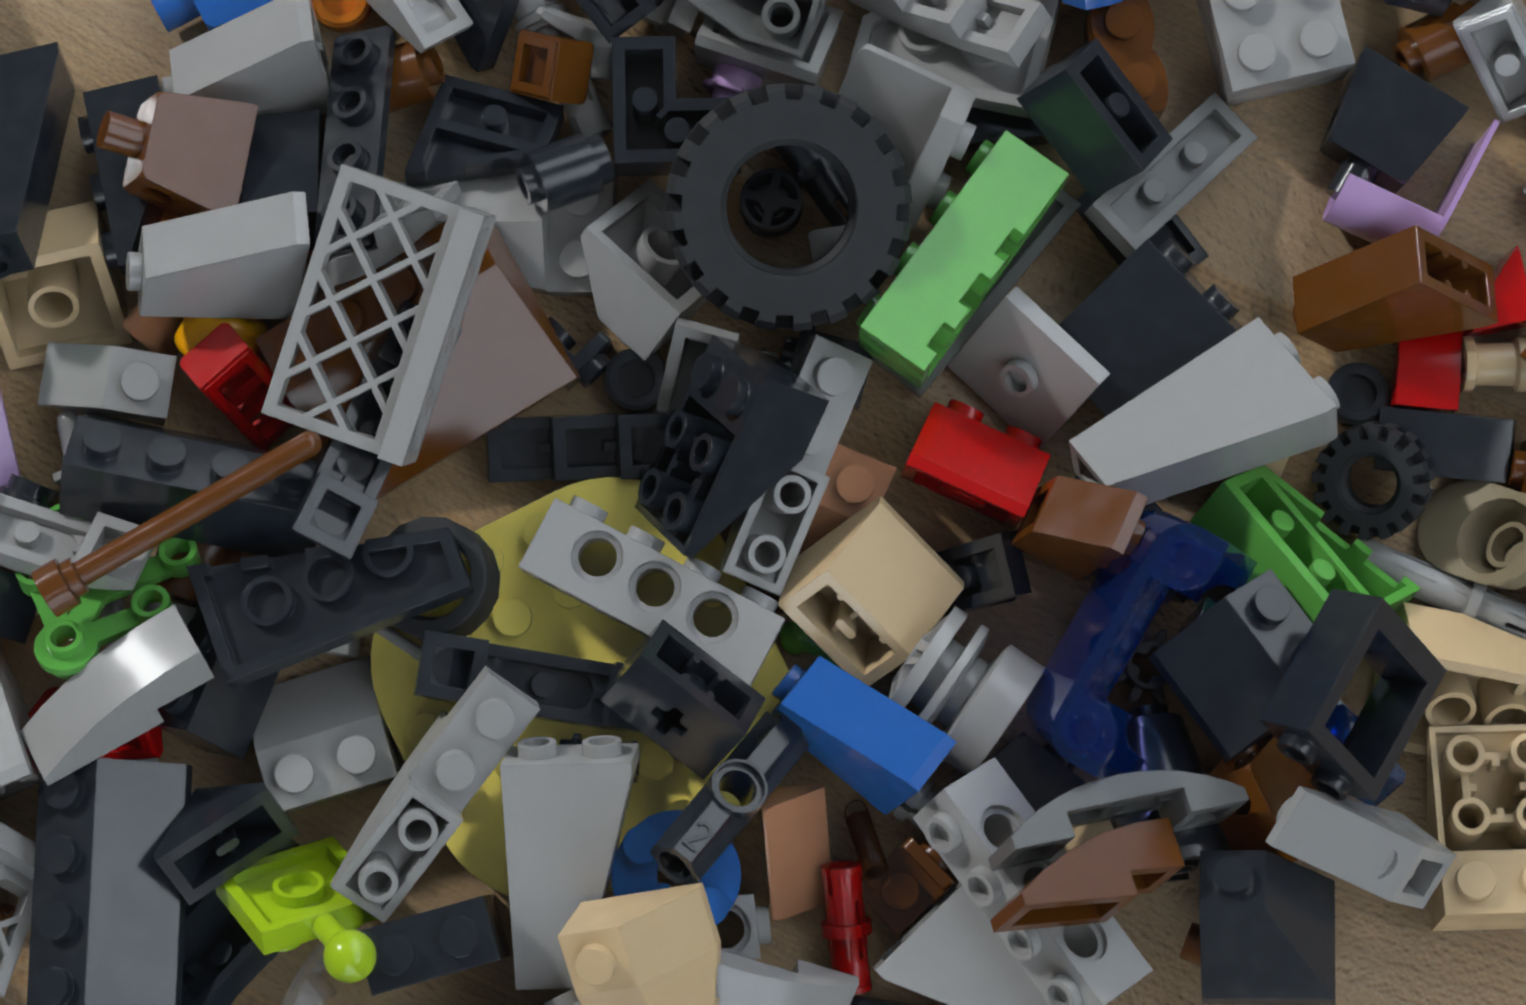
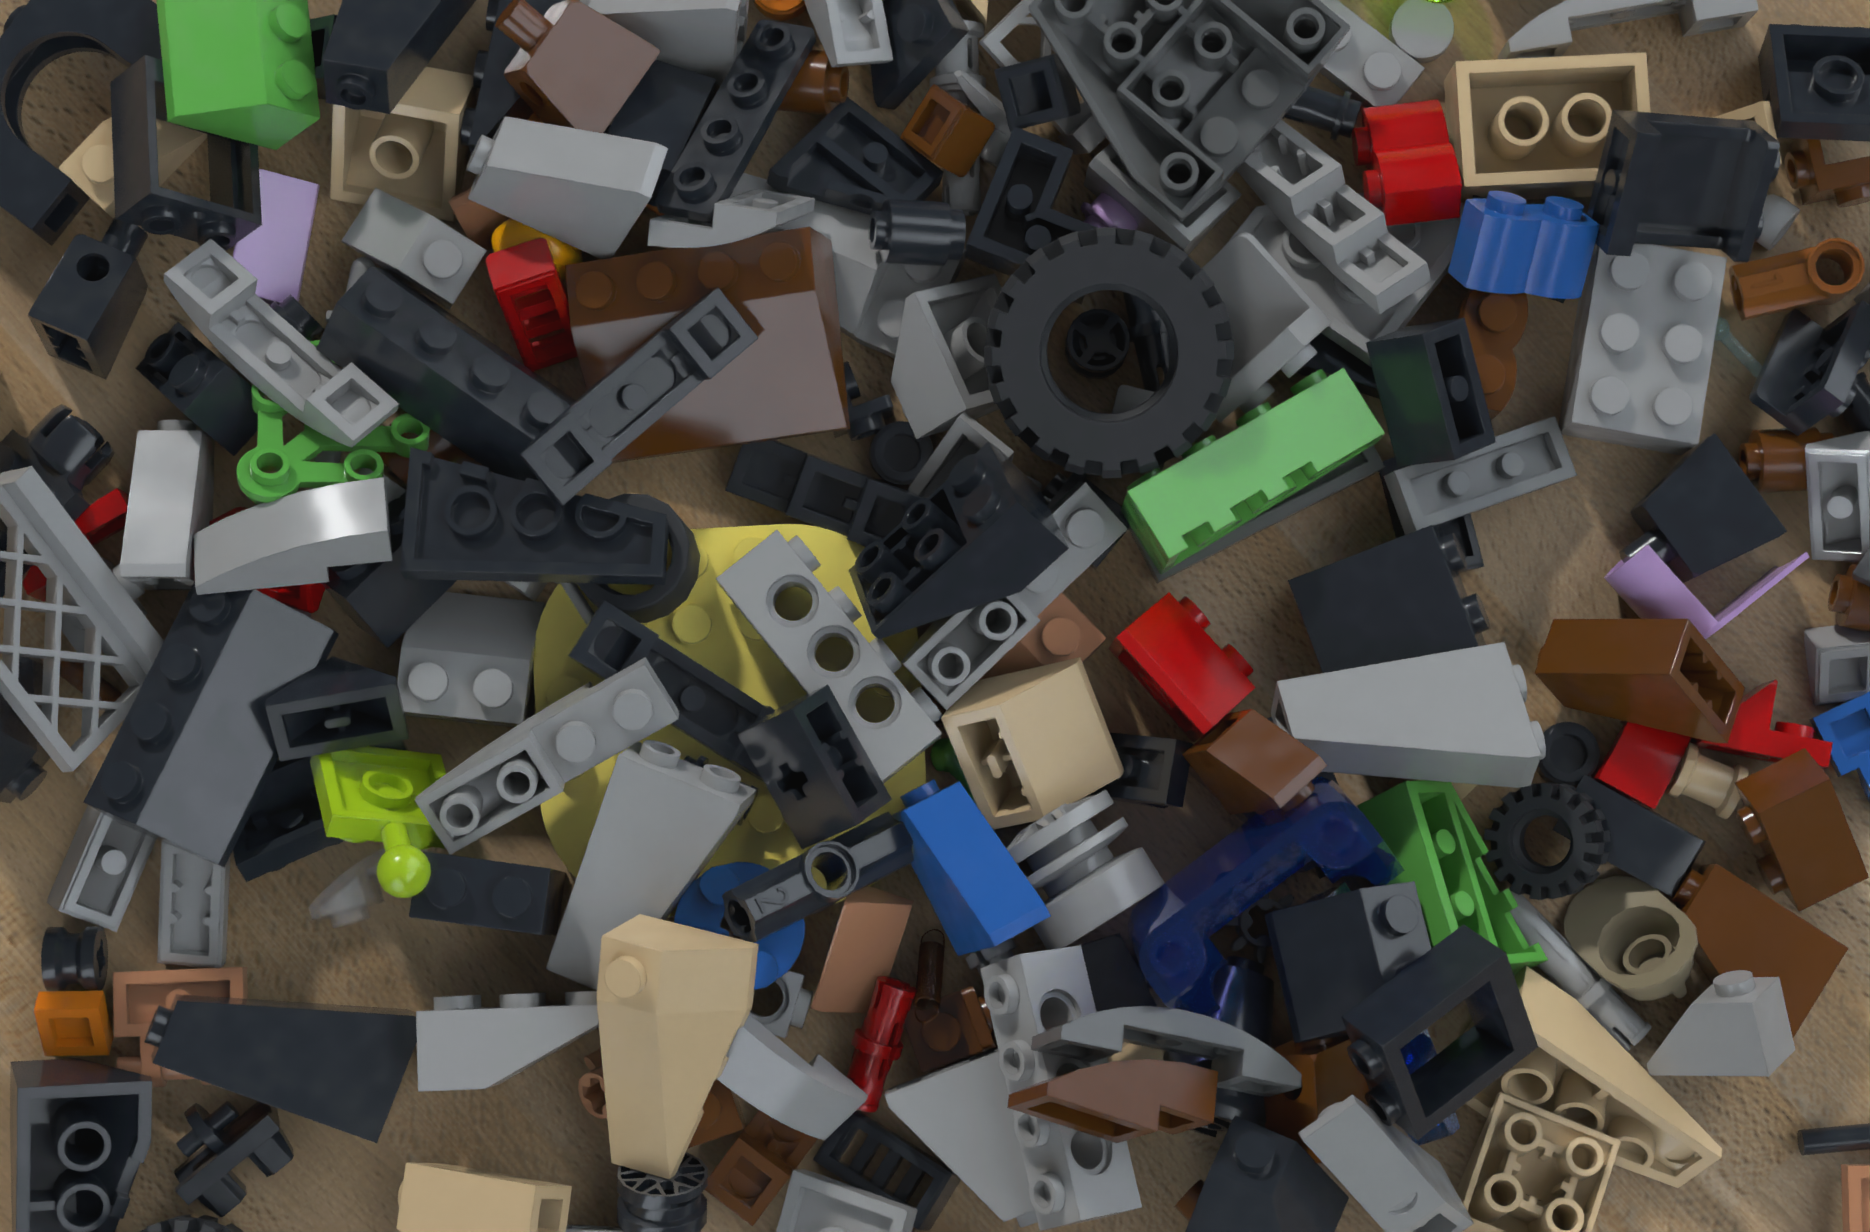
camera: 20 degrees right, 0 degrees up
(67, 581) = (292, 413): reddish brown piece -> none
(432, 332) = (728, 327): light grey fence -> none
(1028, 367) = (1269, 597): light grey plate -> none

